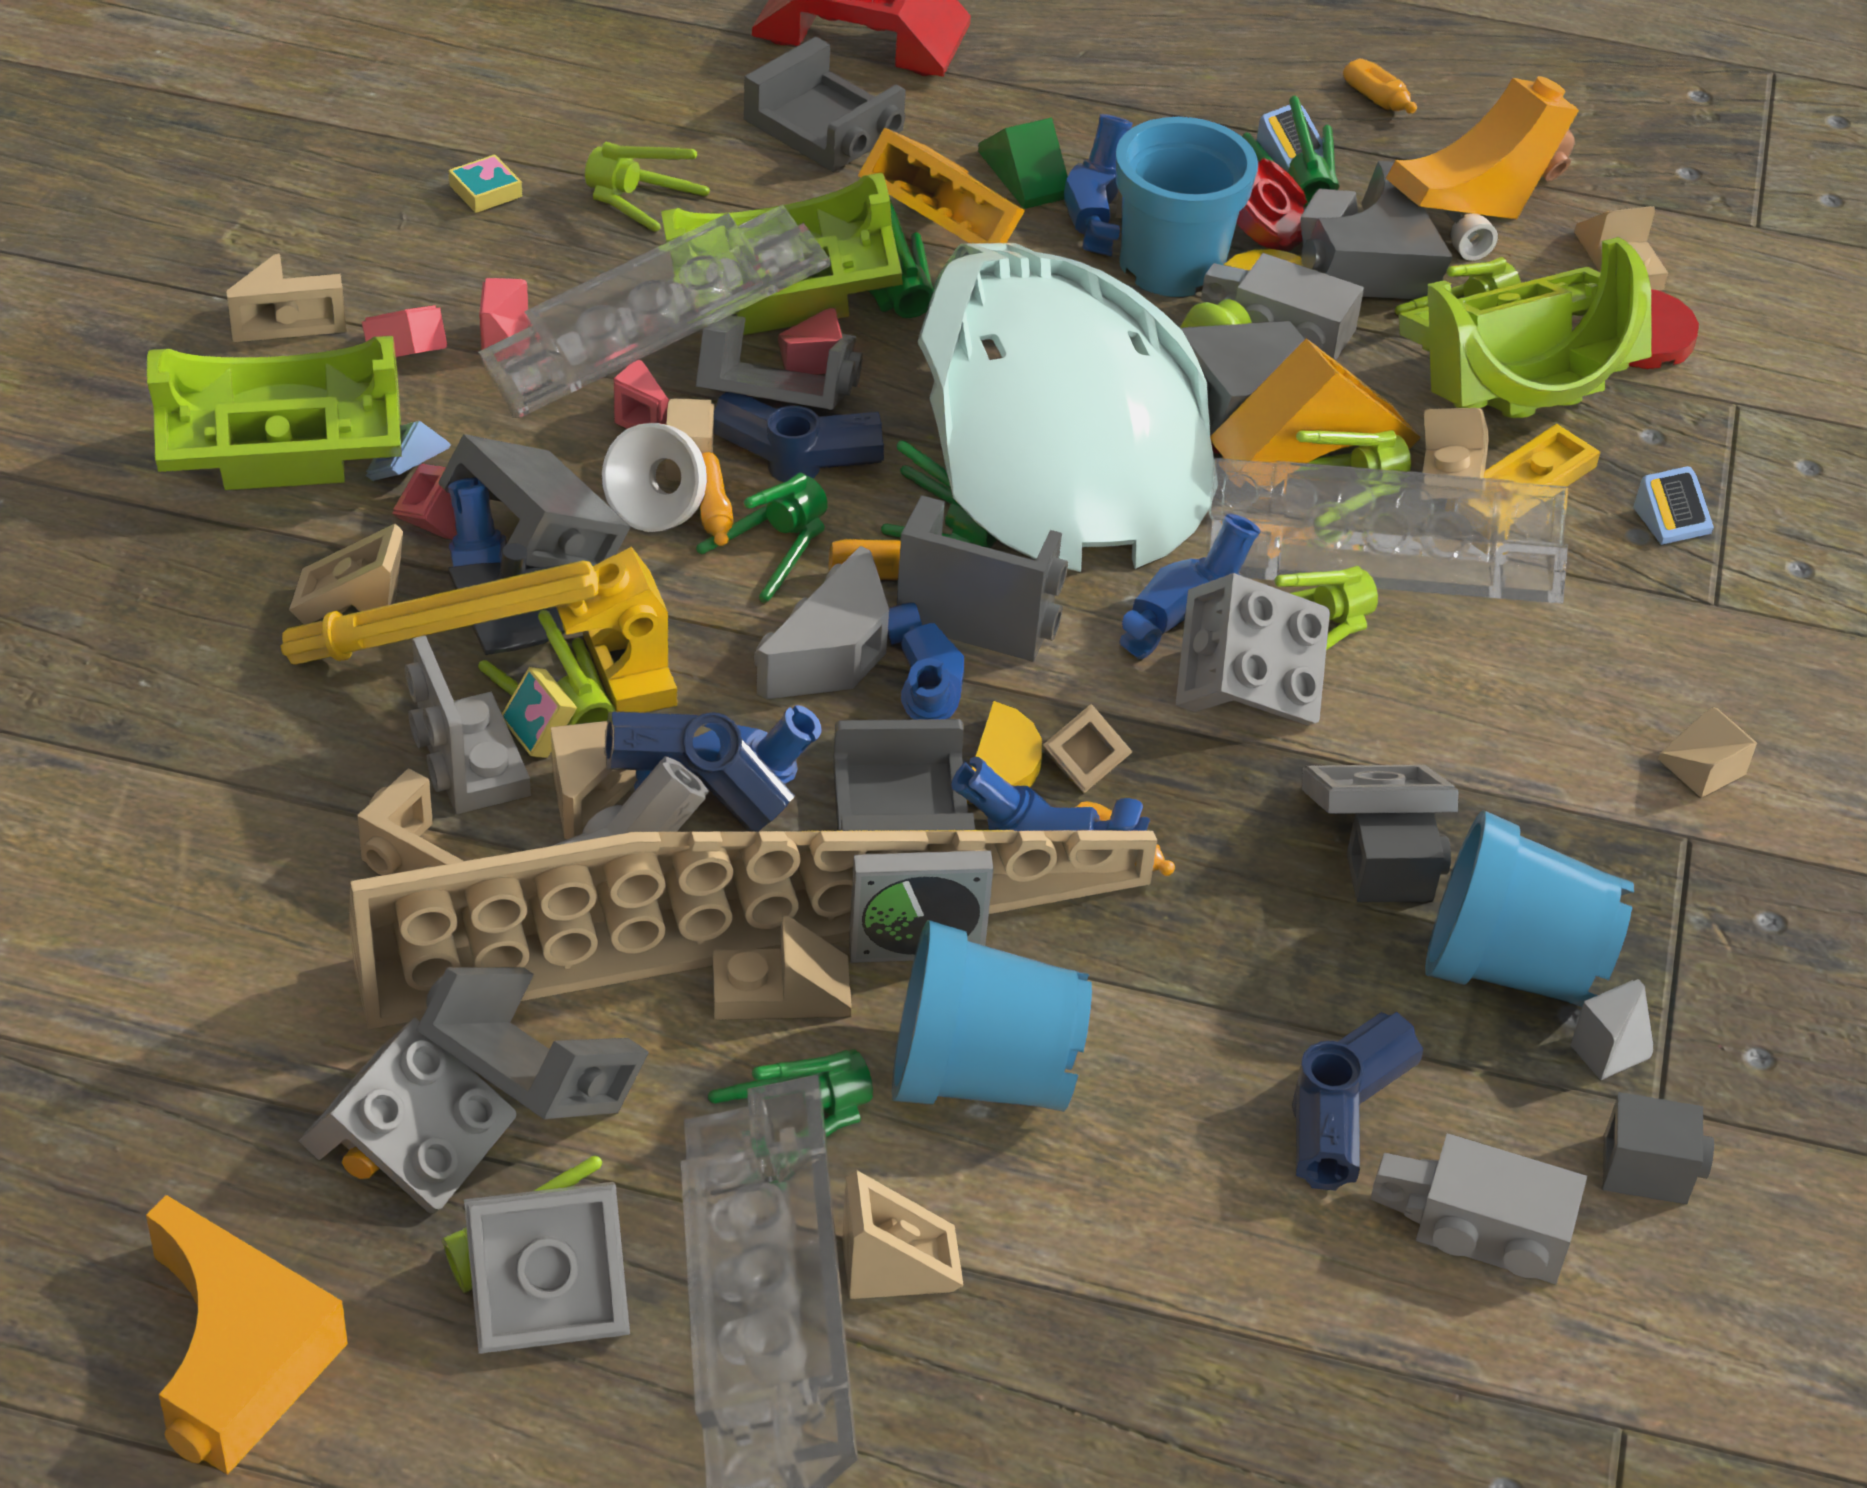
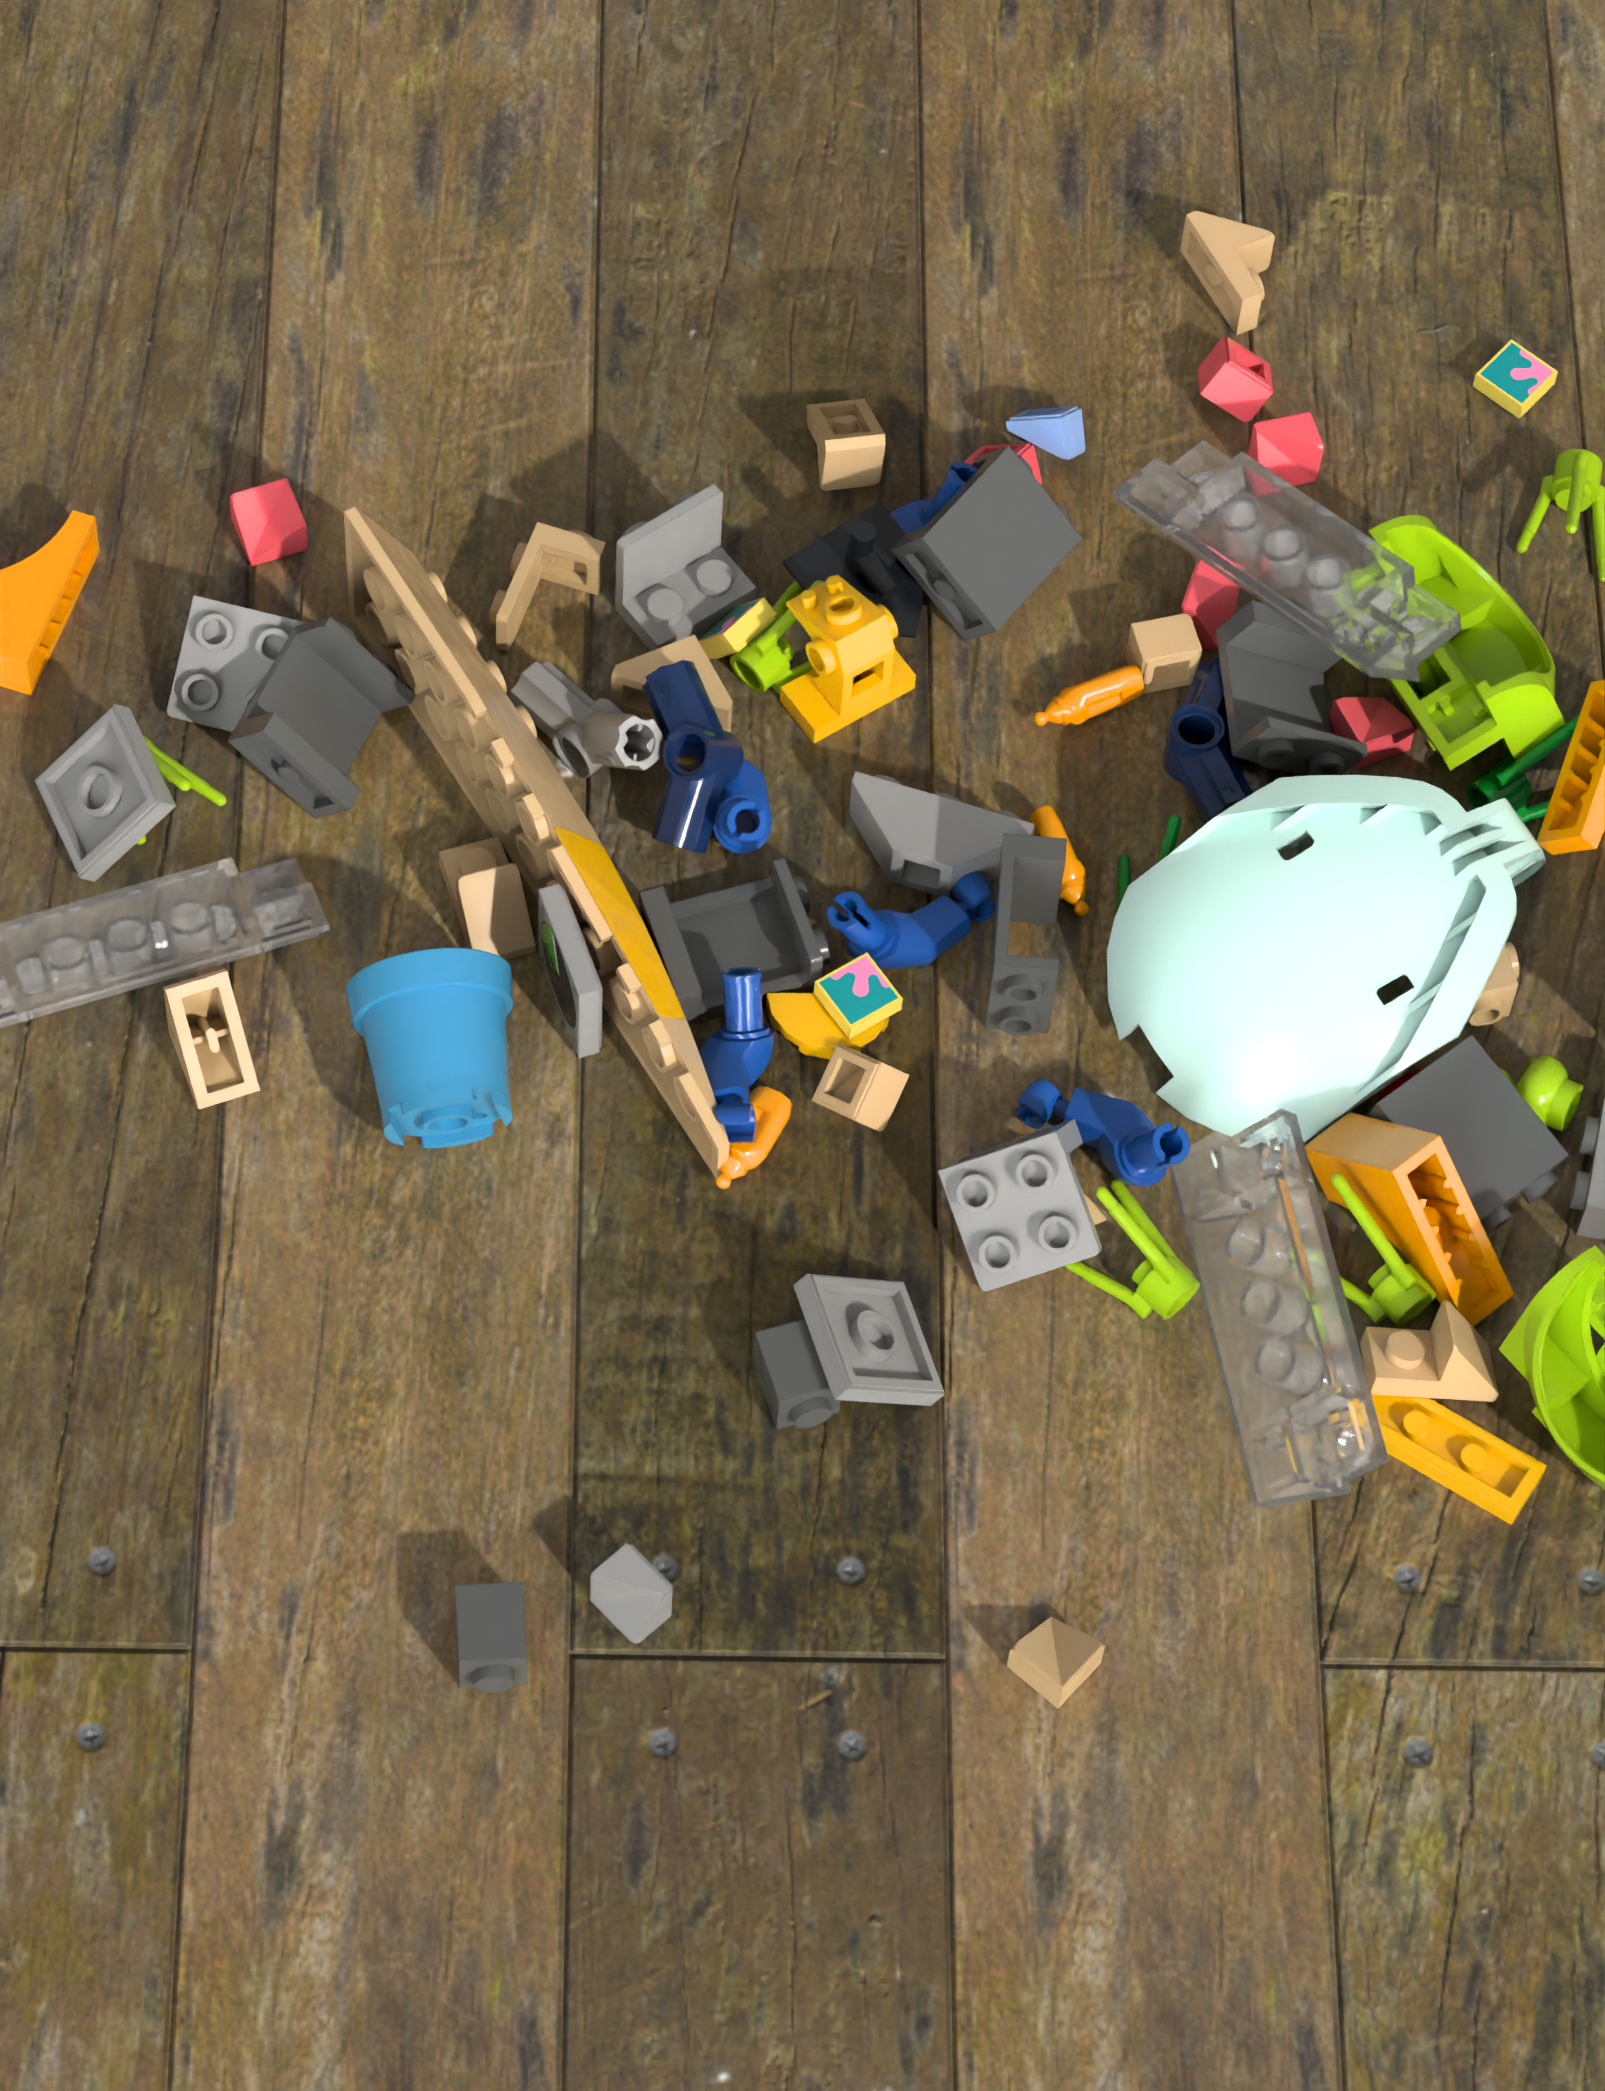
camera: 75 degrees right, 15 degrees up
(226, 1059) = (268, 522): none -> coral slope
(275, 415) = (1040, 303): lime piece -> none
(342, 634) = (774, 451): yellow axle -> none
(632, 483) = (1084, 636): white piece -> none
(789, 508) = (1102, 765): green plant -> none
(842, 1077) = (364, 951): green plant -> none
(997, 717) = (858, 995): none -> tile
(1333, 1085) = (513, 1373): dark blue piece -> none
(1486, 1205) = (381, 1502): light grey hinge -> none
(1526, 916) = (714, 1473): dark azure piece -> none
(1673, 505) = (1450, 1601): slope -> none

